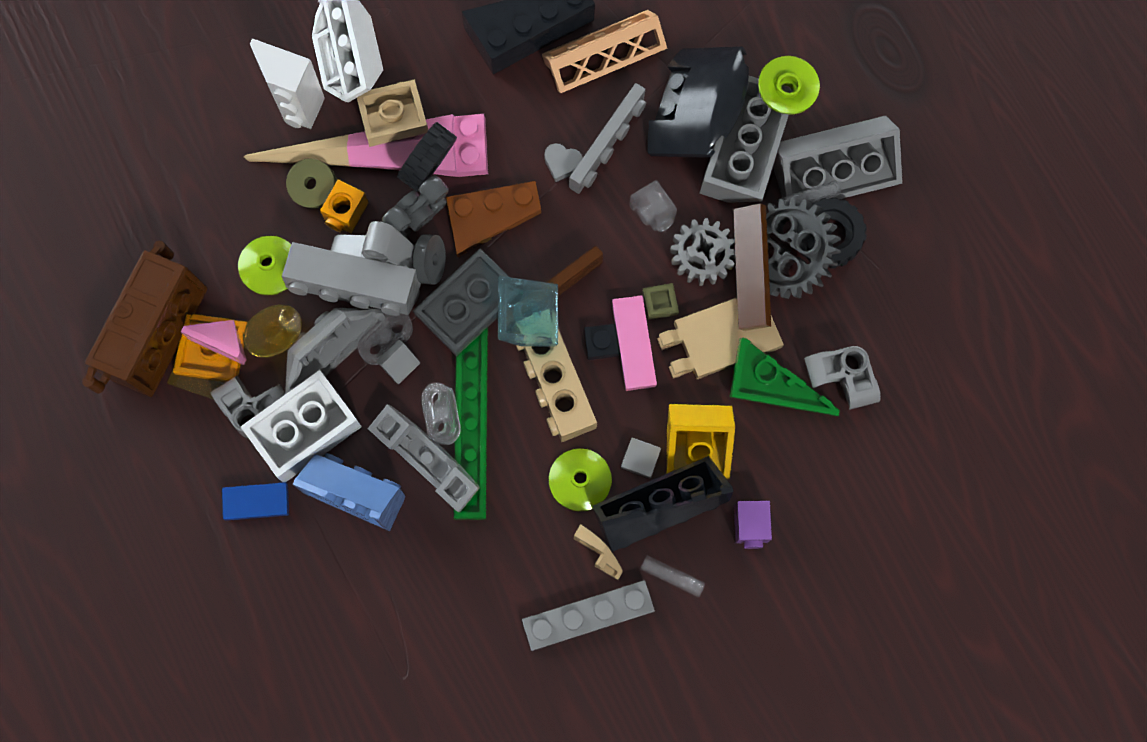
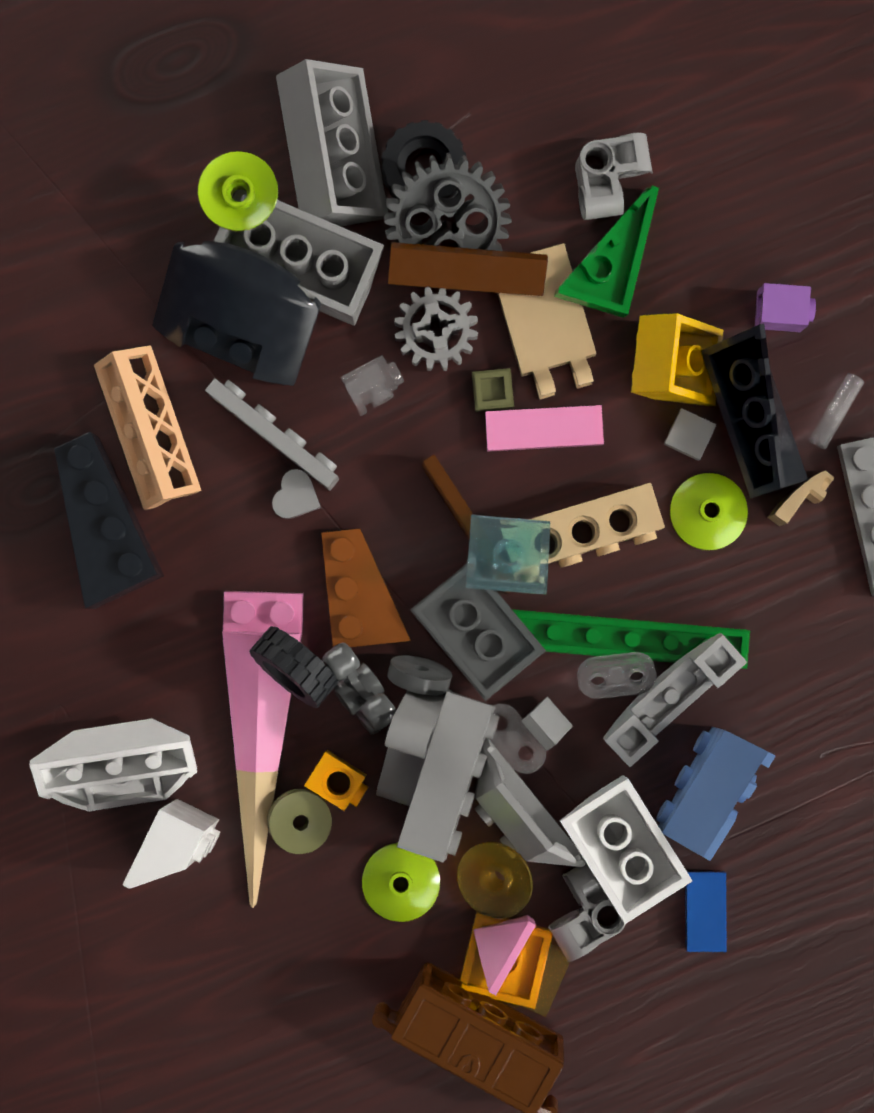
camera: 85 degrees left, 10 degrees up
(392, 113) = (218, 709): tan plate -> none
(601, 342) = (539, 468): black plate -> none
(816, 193) = (375, 184): clear piece -> none

